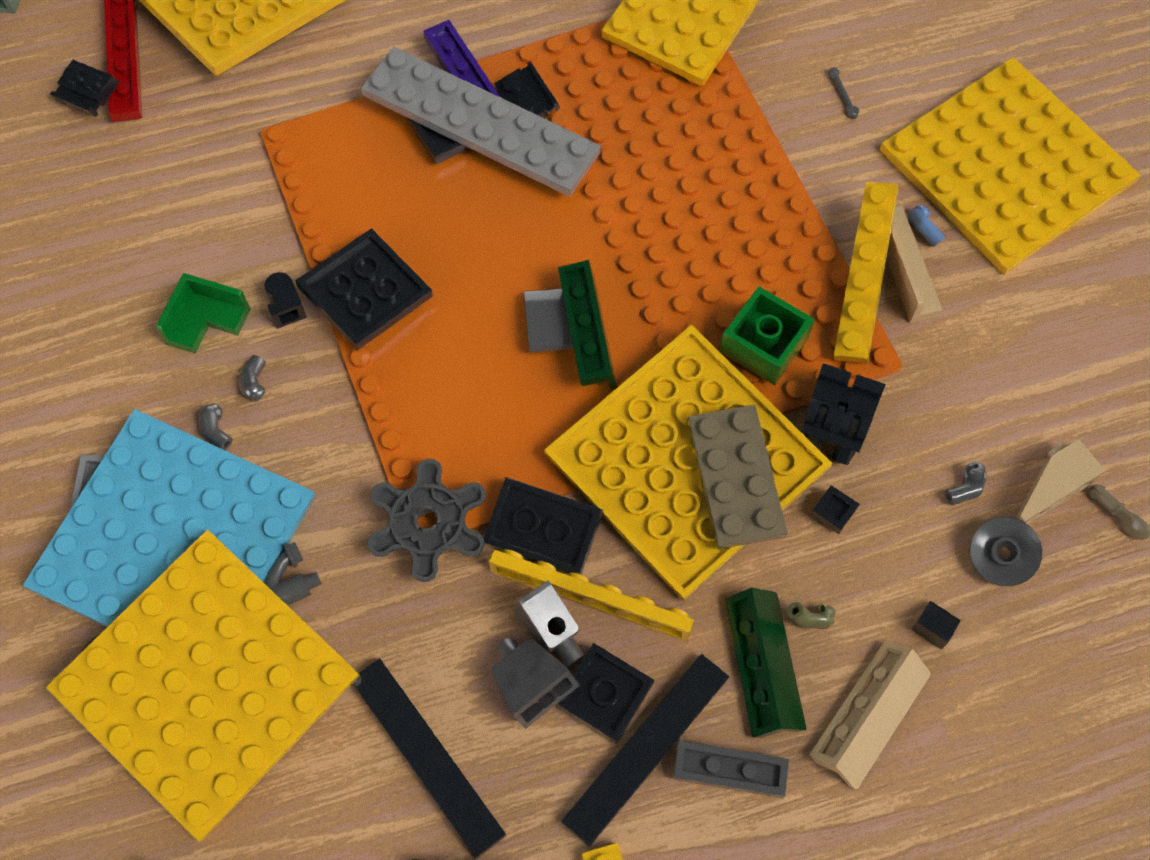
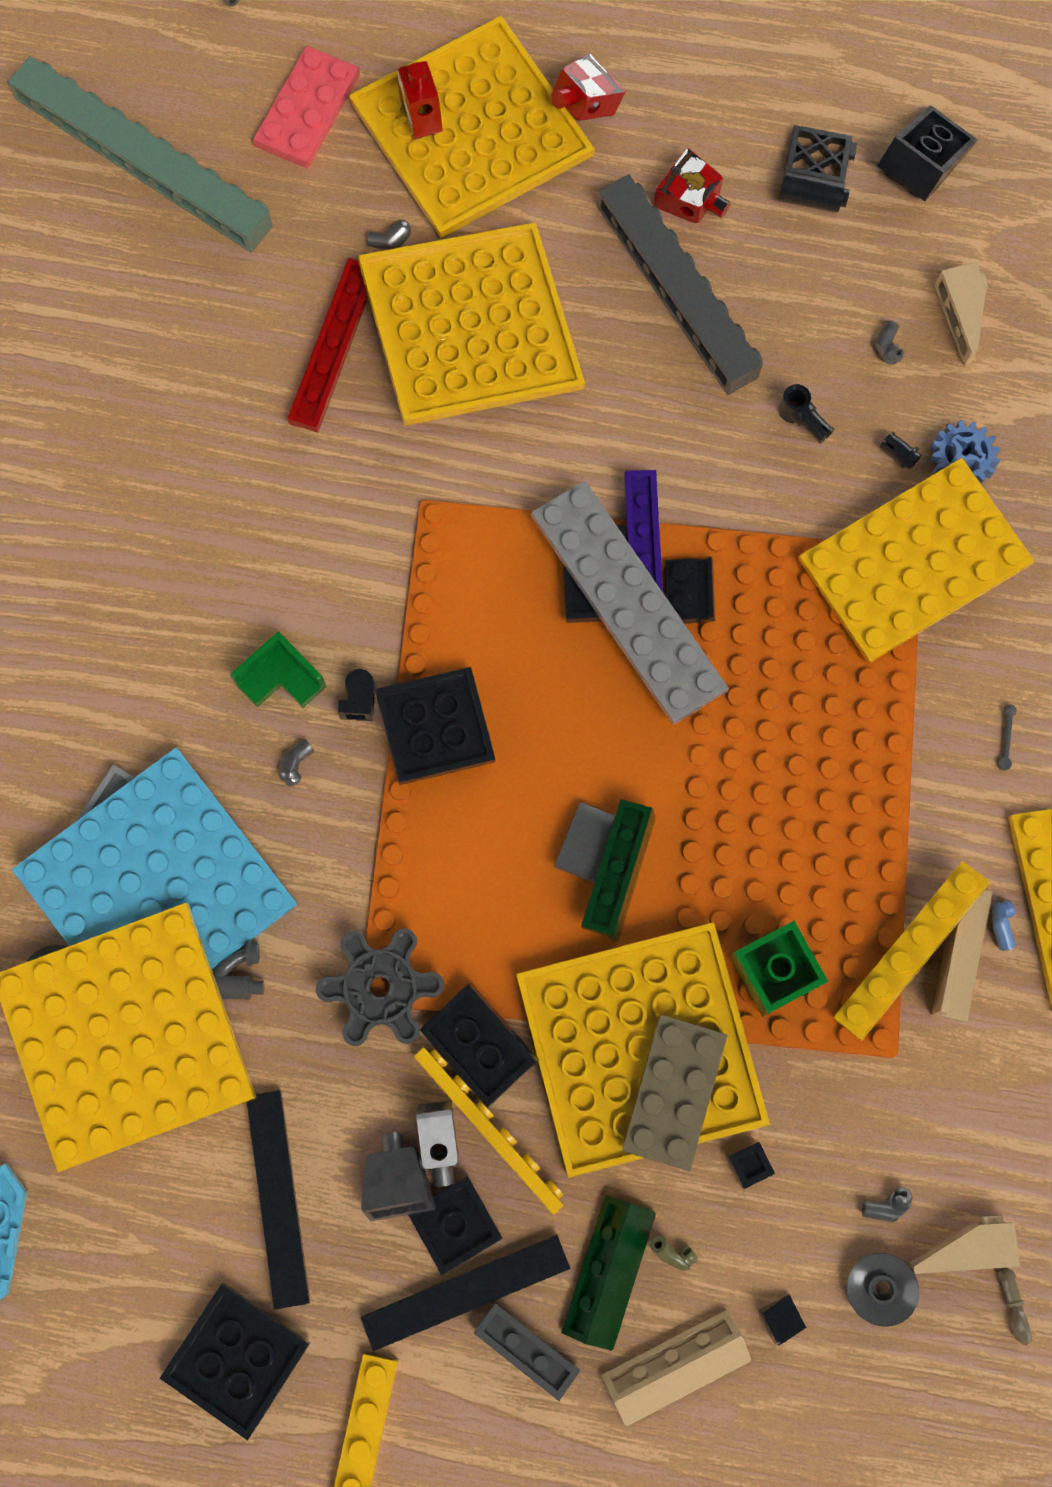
camera: 25 degrees right, 10 degrees up
(84, 87) = (277, 376): black plate -> none
(209, 428) = (235, 792): flat silver arm -> none
(839, 407) = (797, 1091): black hips -> none

